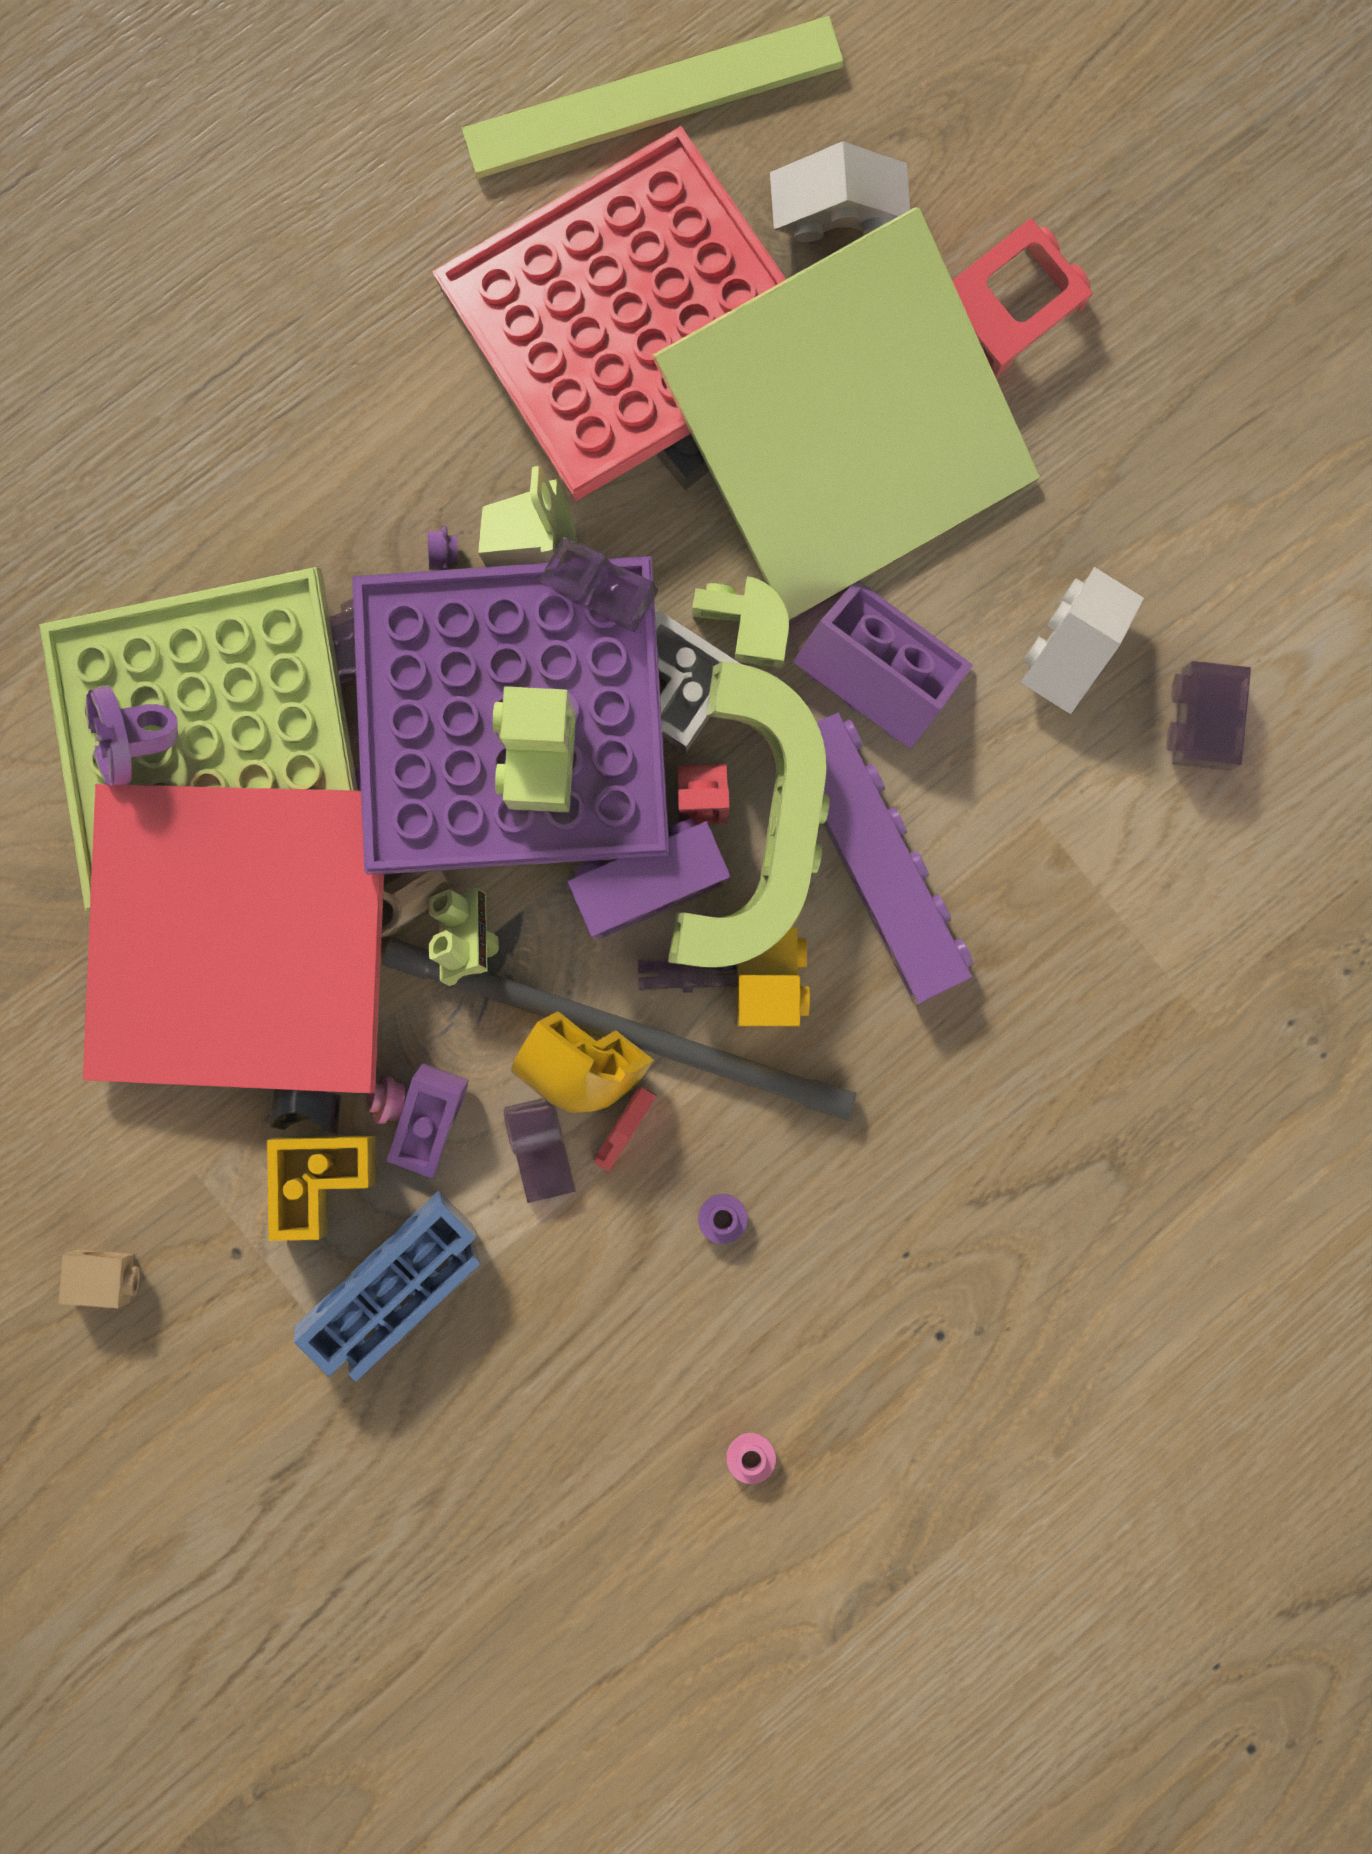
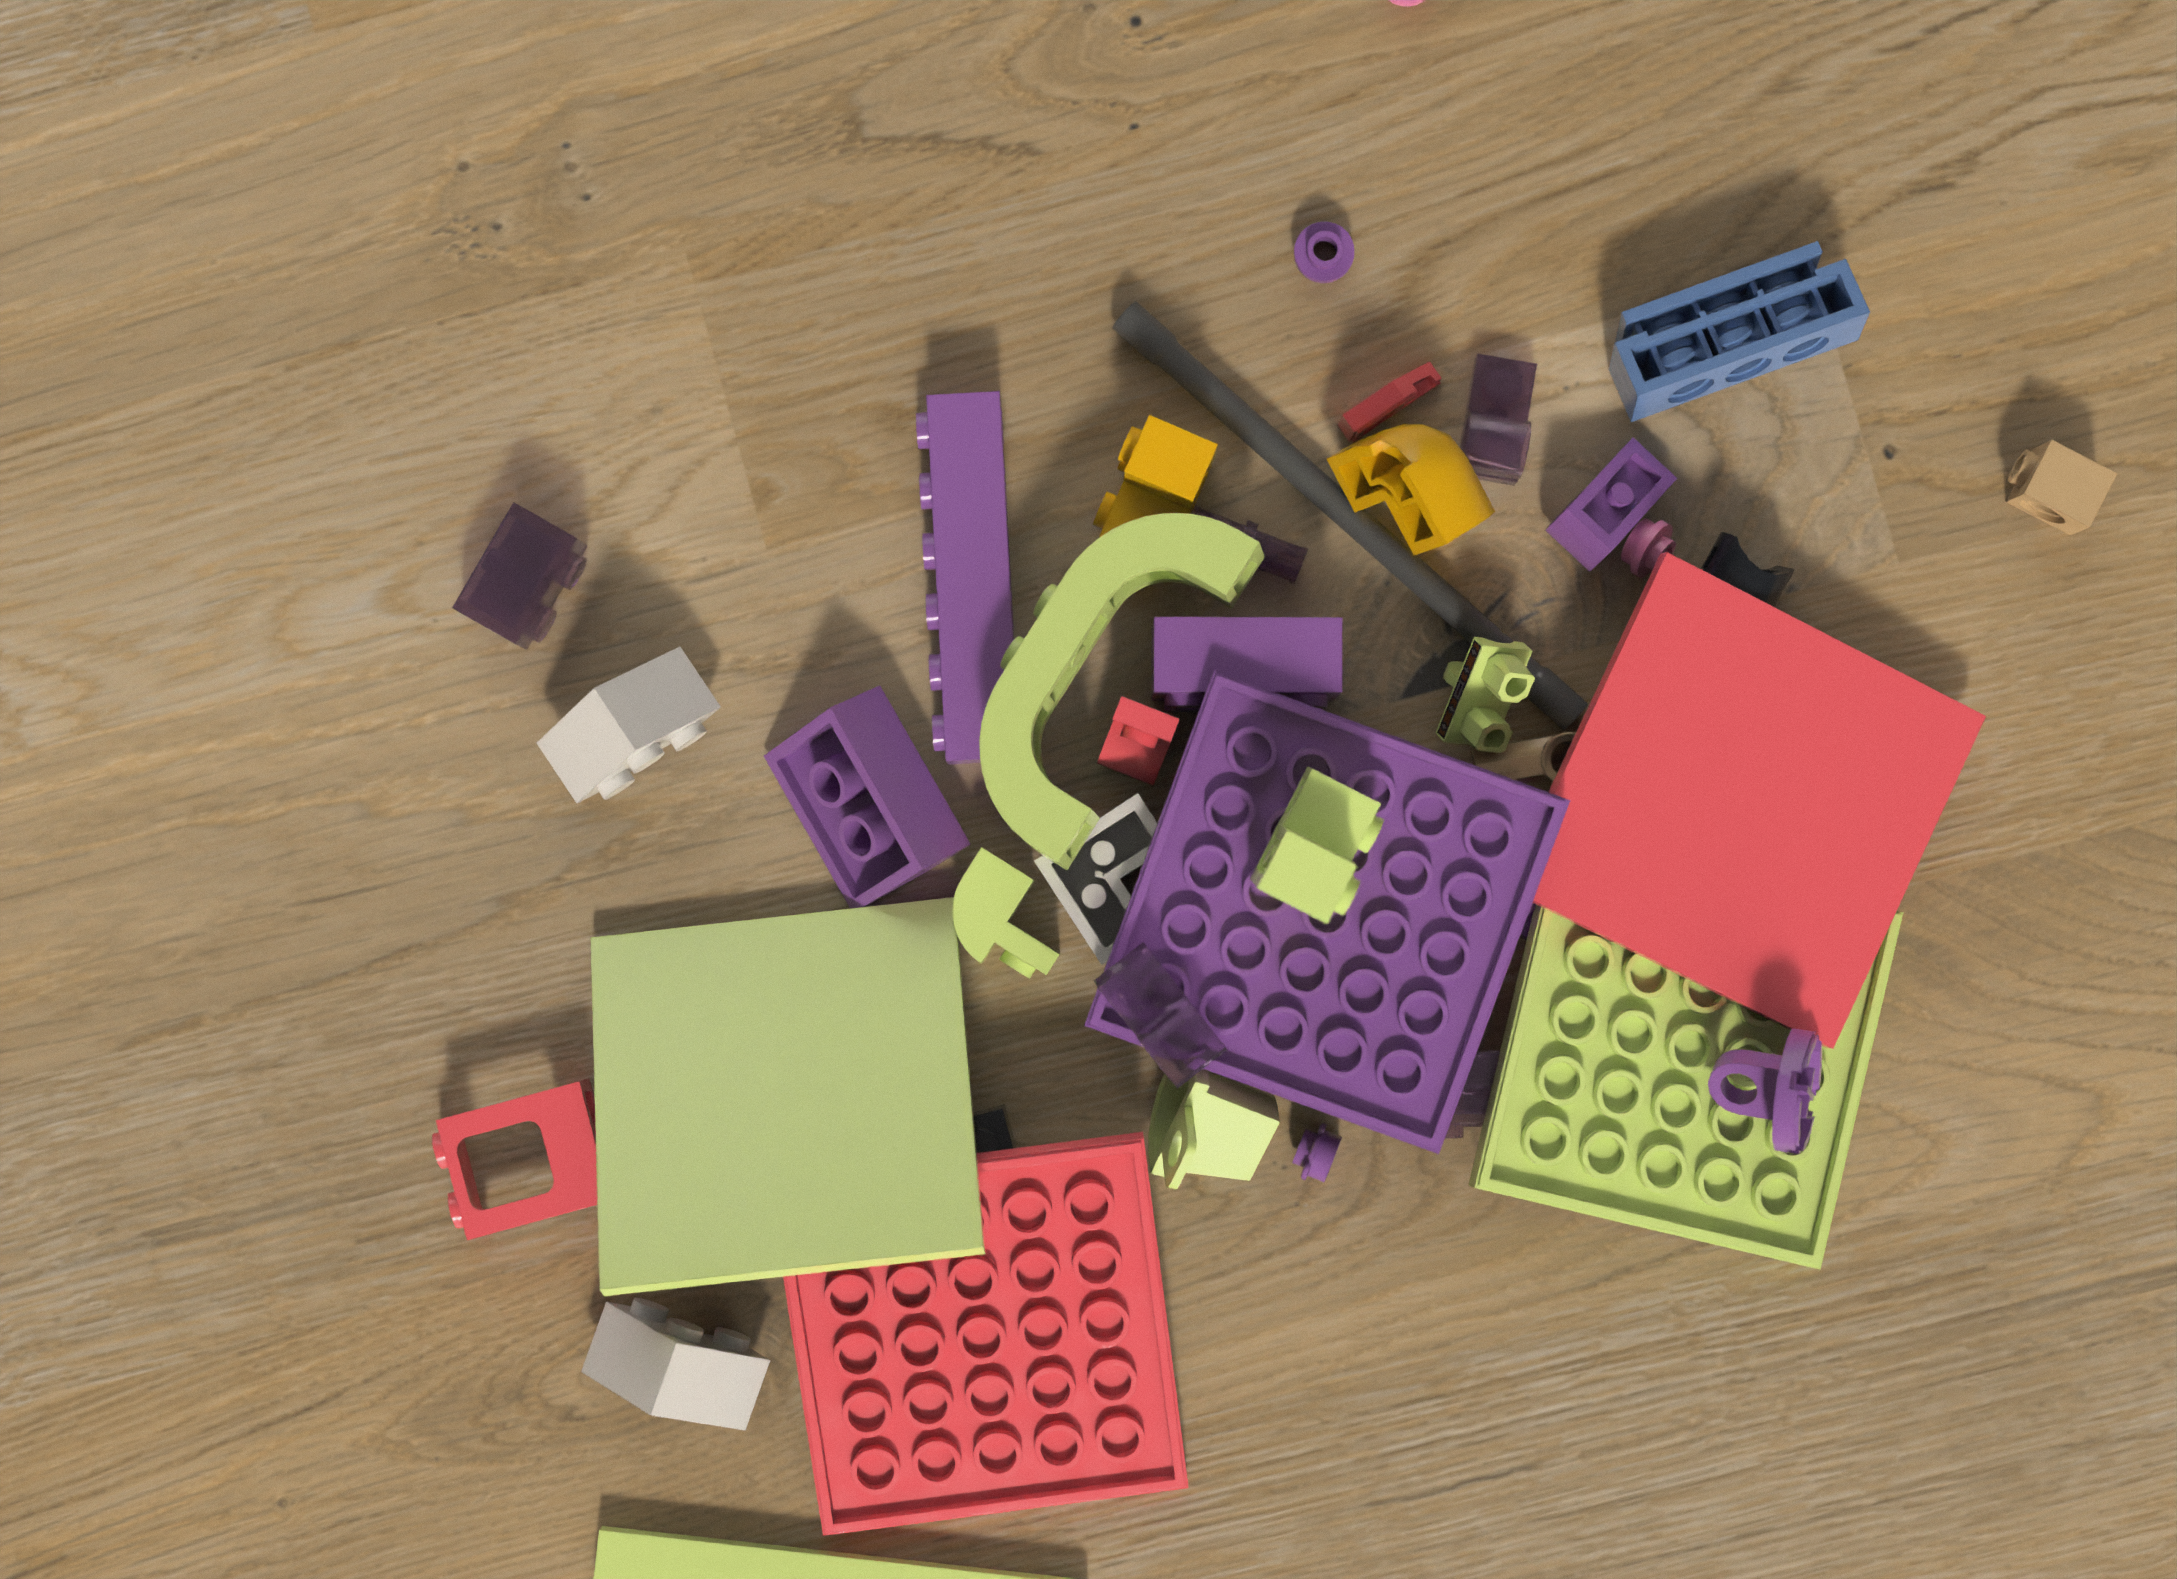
camera: 155 degrees left, 0 degrees up
(301, 1174) = (1773, 504): yellow brick -> none

